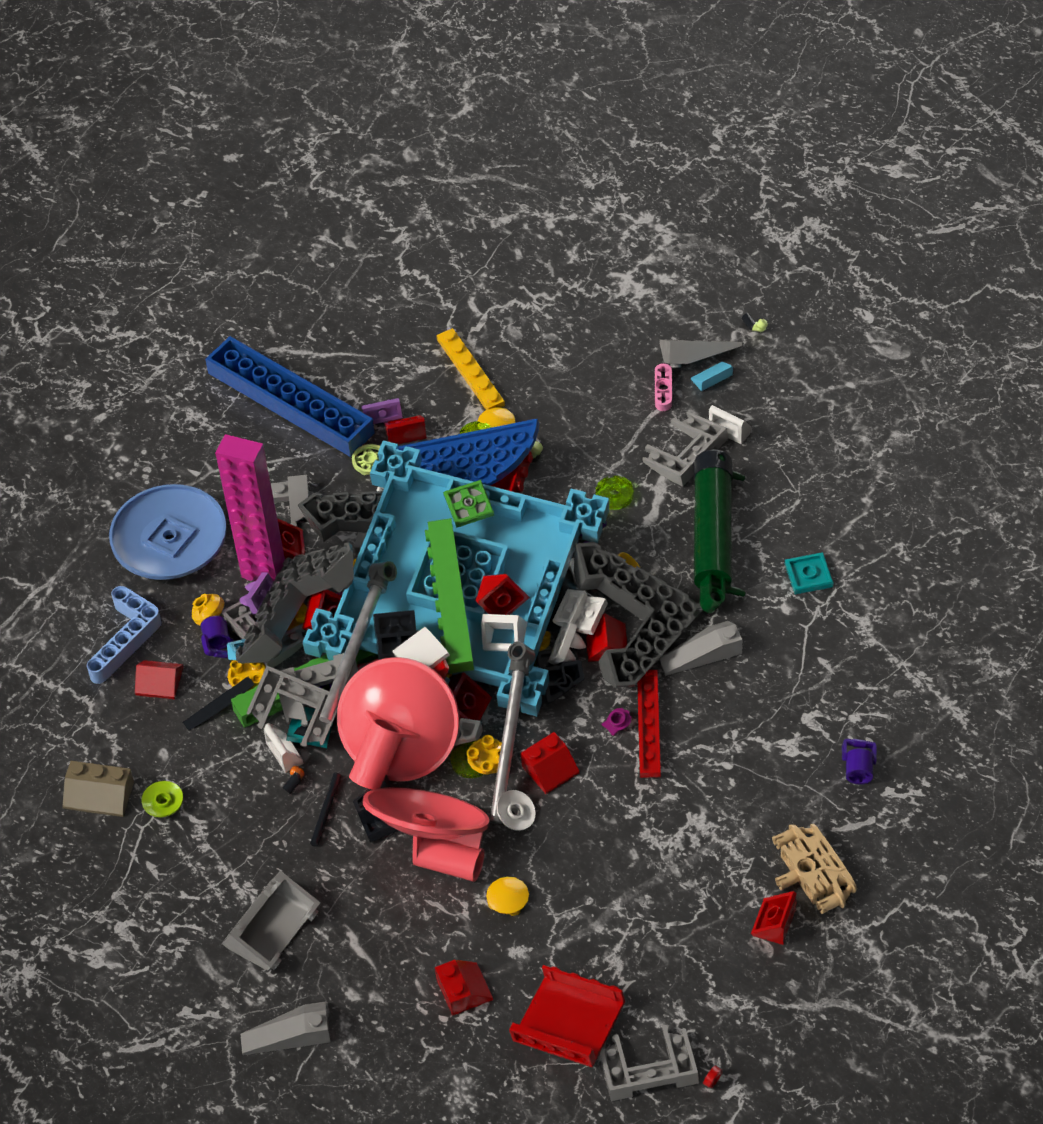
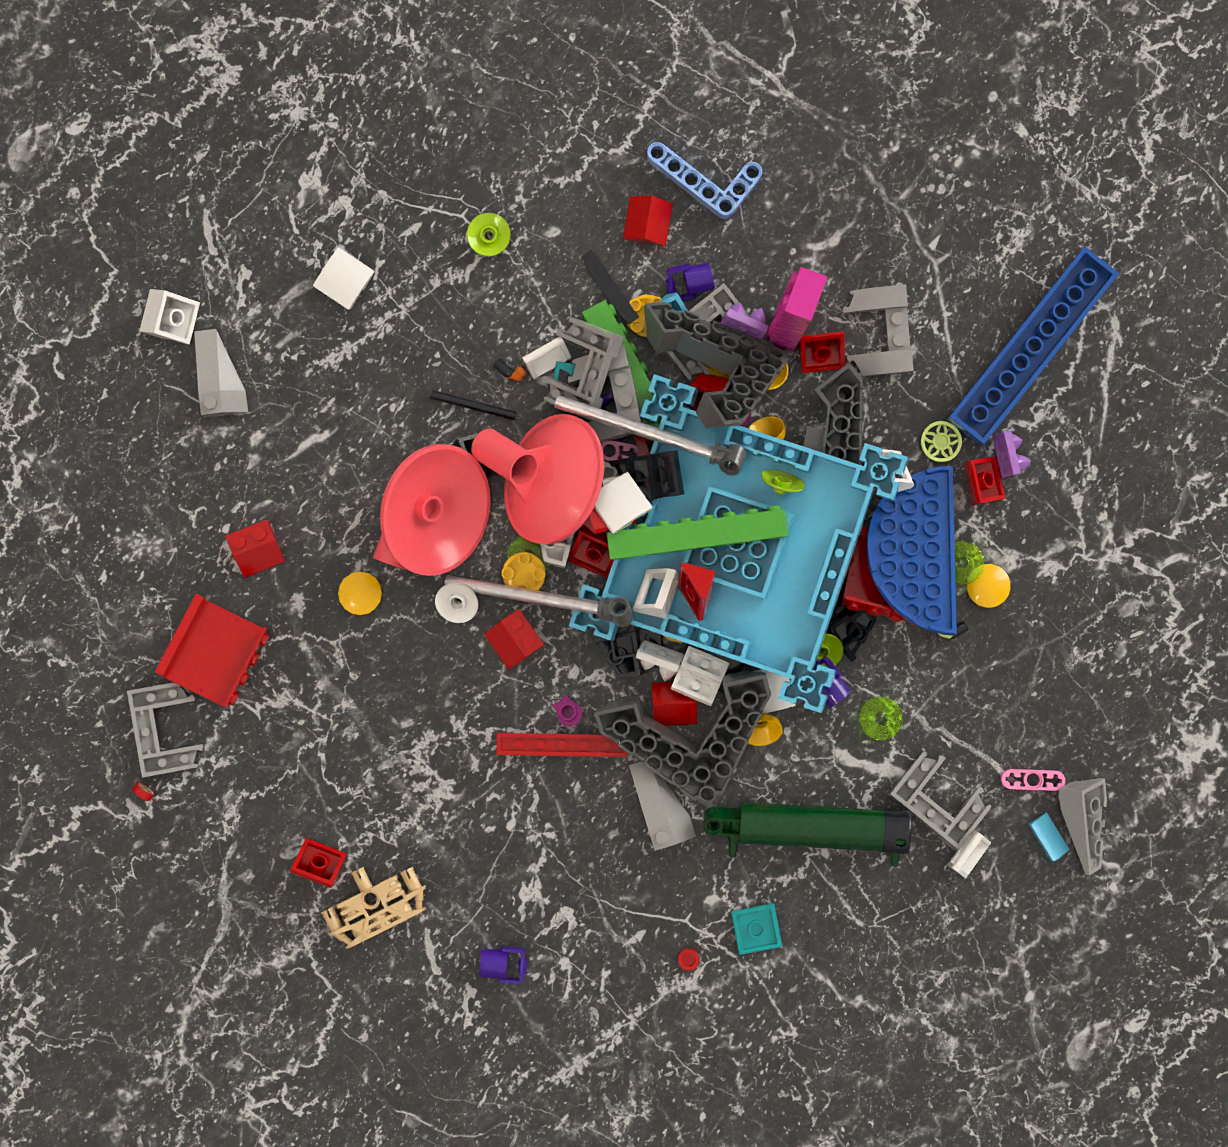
camera: 80 degrees right, 35 degrees up
(97, 788) = (504, 165): dark tan slope -> none
(162, 511) = (846, 188): medium blue dish -> none
(196, 920) = (343, 278): none -> white slope
(206, 606) = (731, 274): yellow piece -> none
(225, 1073) = (169, 316): none -> white slope
(271, 922) = (332, 350): light grey windscreen -> none
(404, 537) = (782, 481): none -> lime dish
(468, 503) = (814, 555): bright green piece -> none
(470, 369) = (1070, 556): yellow plate -> none
(759, 326) = (1123, 889): arm -> none
(841, 622) = (688, 959): none -> red tile

